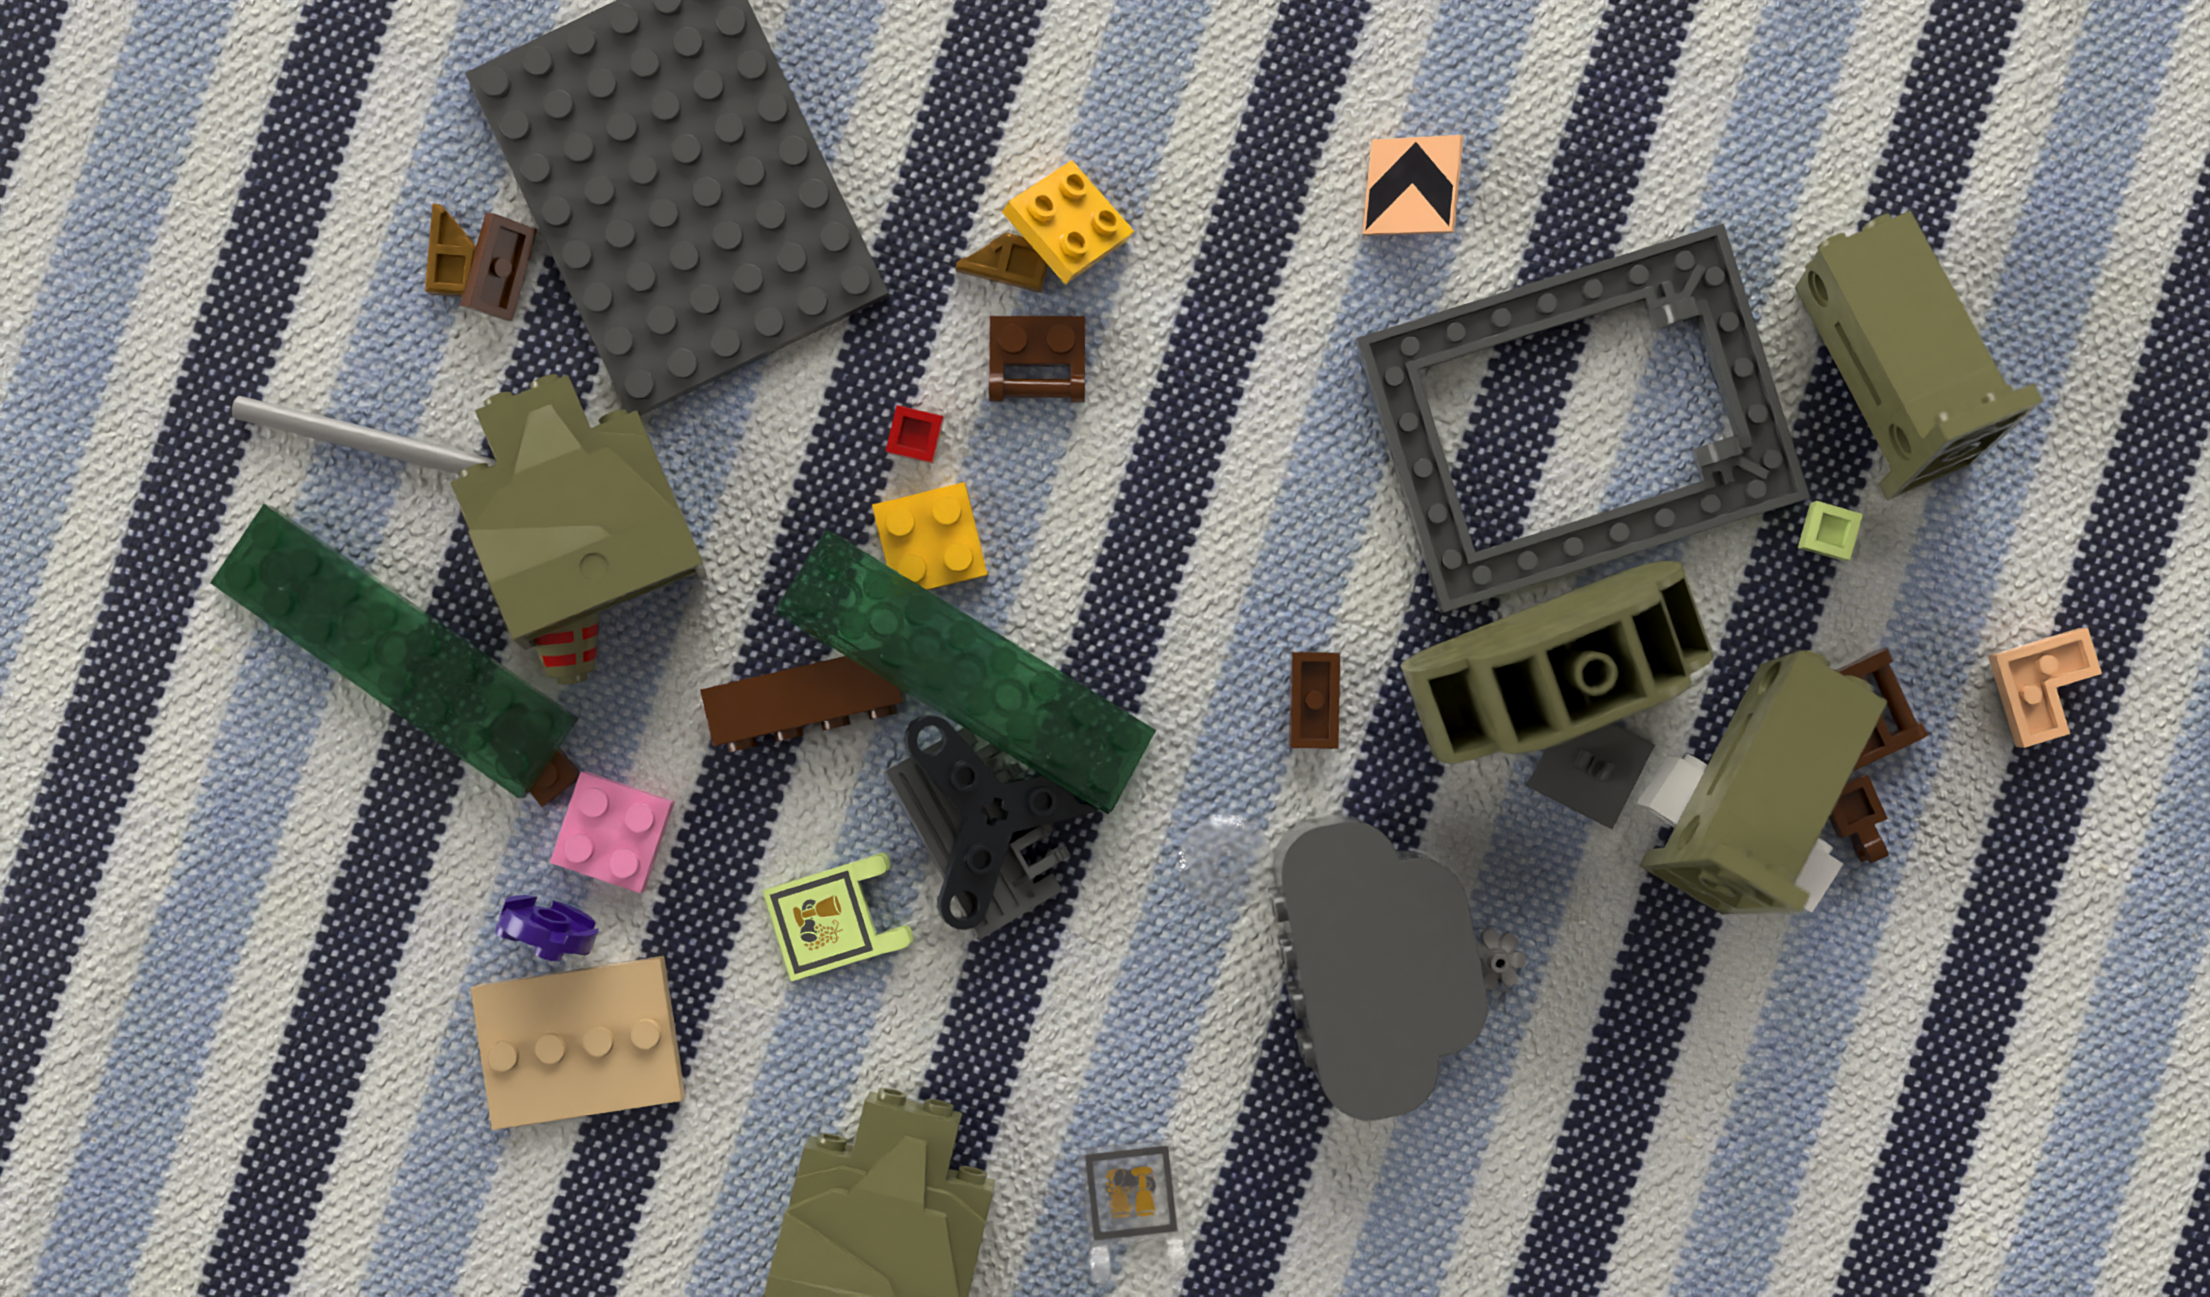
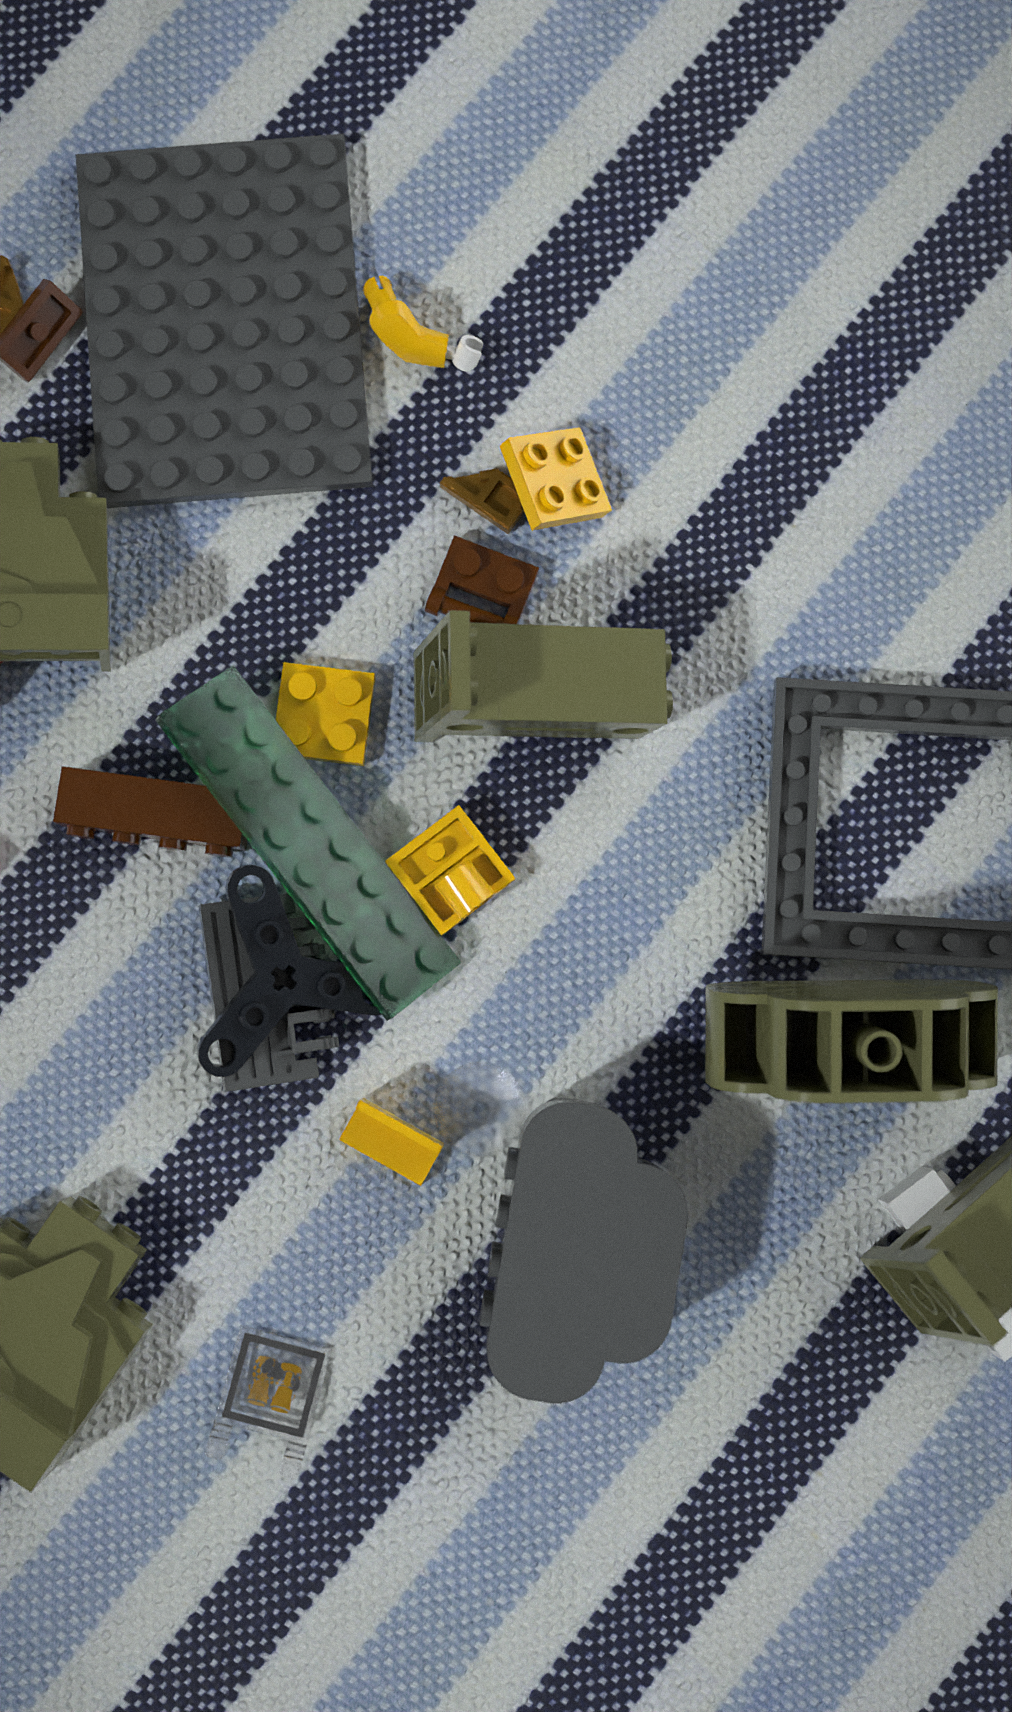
camera: 15 degrees right, 5 degrees down
(826, 919) = (94, 1021): yellowish green flag -> none
(872, 136) = (408, 339): none -> yellow arm
(915, 434) = (346, 614): red plate -> none
(1112, 646) = (450, 870): none -> yellow plate
(1131, 432) = (540, 681): none -> olive brick
(1155, 924) = (391, 1141): none -> yellow panel
(1314, 700) = (616, 989): reddish brown plate -> none
(1413, 185) = (876, 562): light nougat piece -> none
(1501, 950) = (698, 1284): light grey plant -> none
(1593, 772) = (848, 1150): dark grey piece -> none

